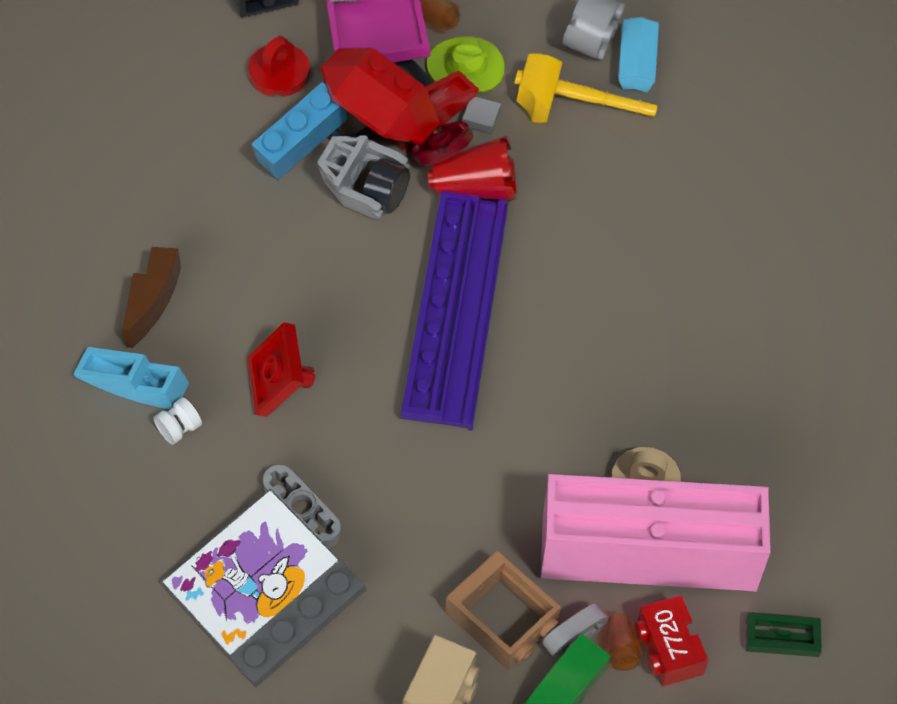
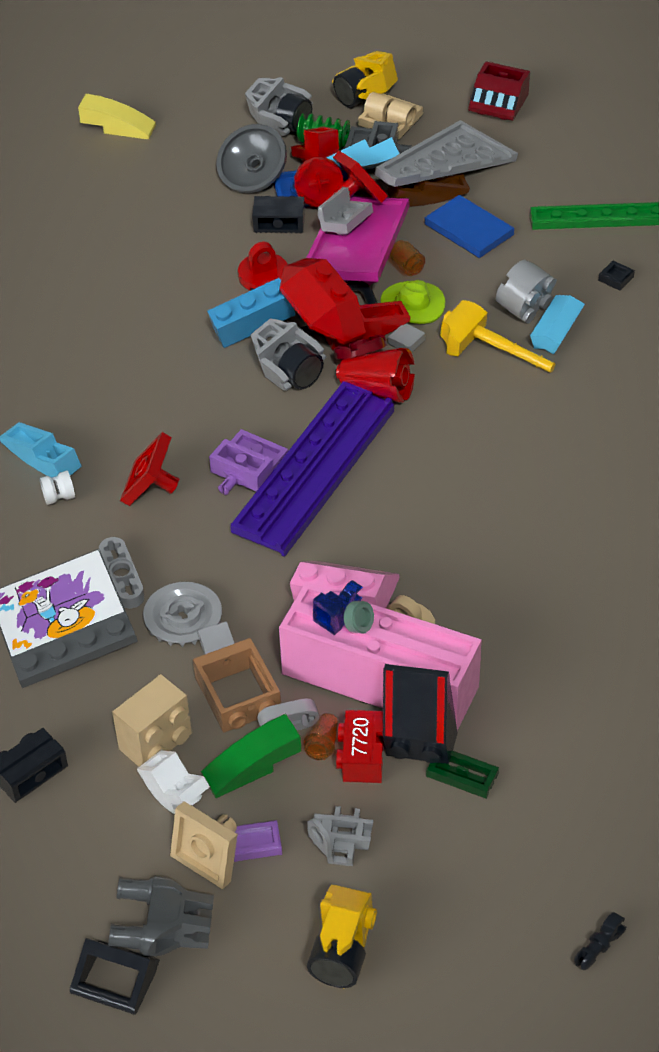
camera: 25 degrees right, 10 degrees down
(150, 294) = (82, 398): reddish brown slope -> none
(380, 323) = (245, 461): none -> medium lavender plate
(399, 516) = (193, 599): none -> light grey gear
(452, 561) = (215, 637): none -> light grey tile
(562, 449) = (376, 584): none -> bright pink slope
(603, 500) = (330, 608): none -> clear blue piece
(635, 503) = (359, 617): none -> sand green tile
(727, 591) = (418, 714): none -> black slope

